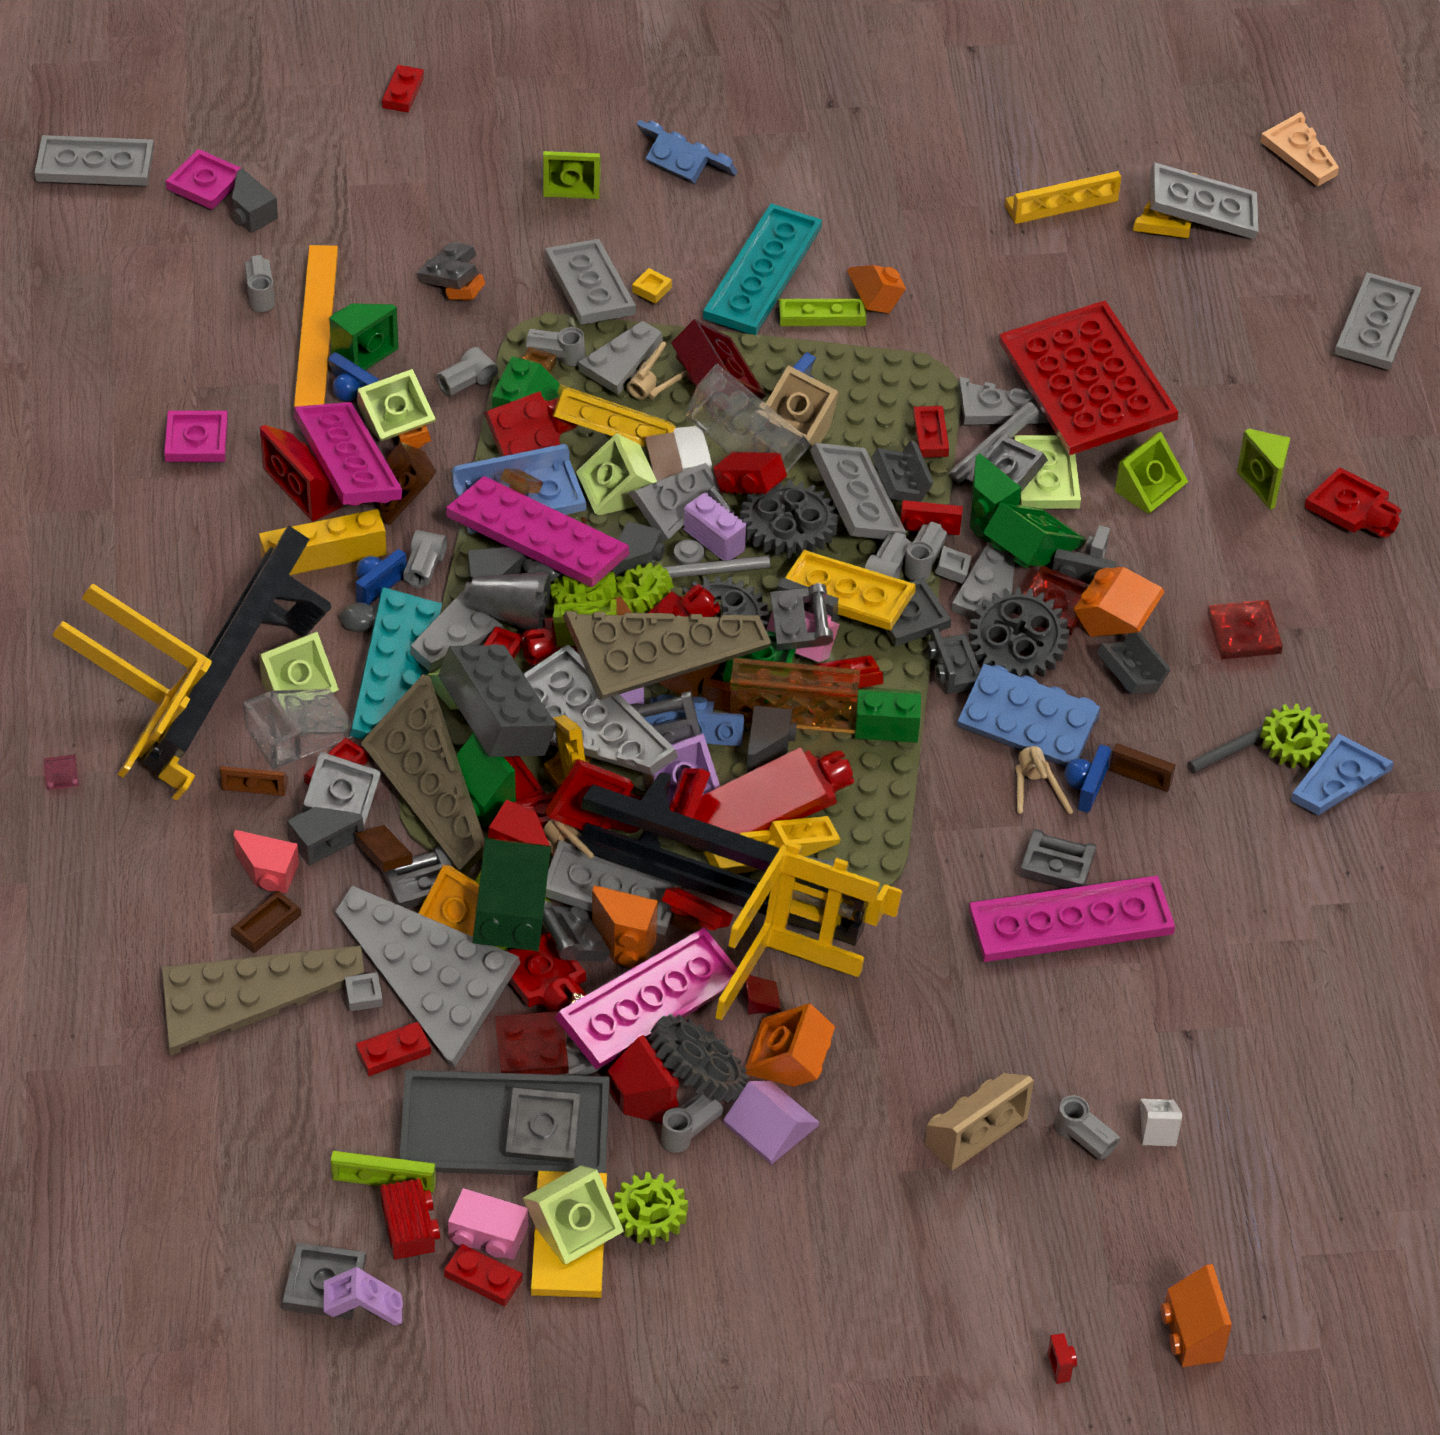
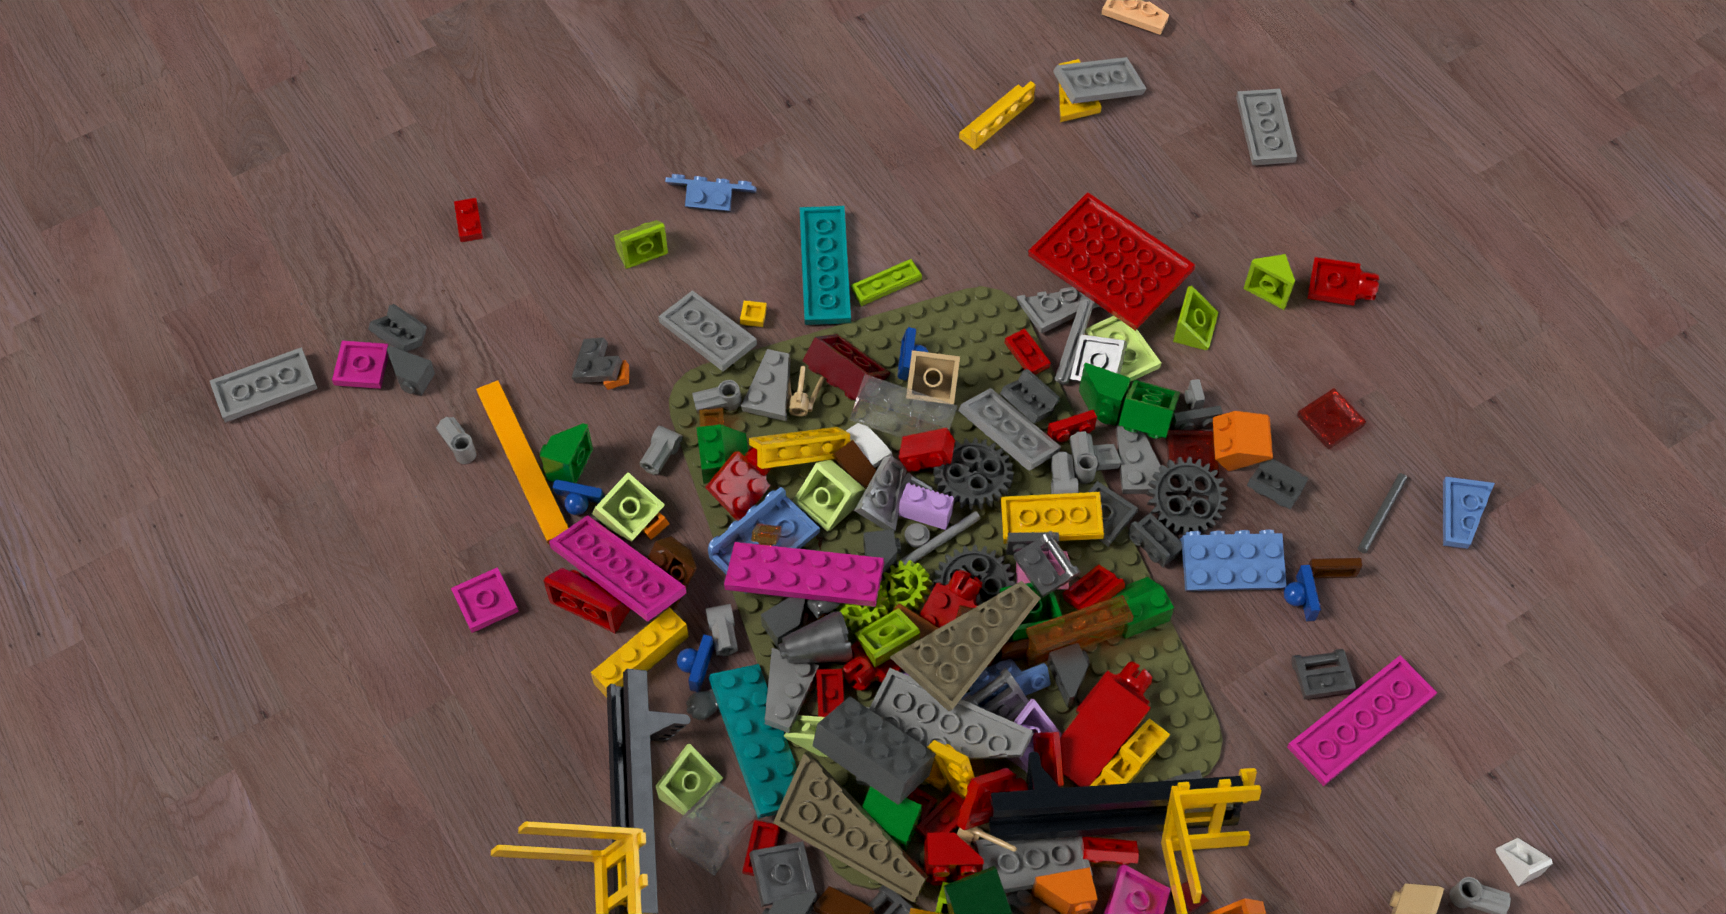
camera: 25 degrees left, 10 degrees up
(253, 781) = (706, 894): dark orange slope -> none
(264, 161) = (399, 329): none -> dark grey bracket
(877, 286) = (916, 245): orange slope -> none
(1035, 767) = (1261, 601): tan plant -> none
(1284, 725) = (1418, 492): lime gear -> none

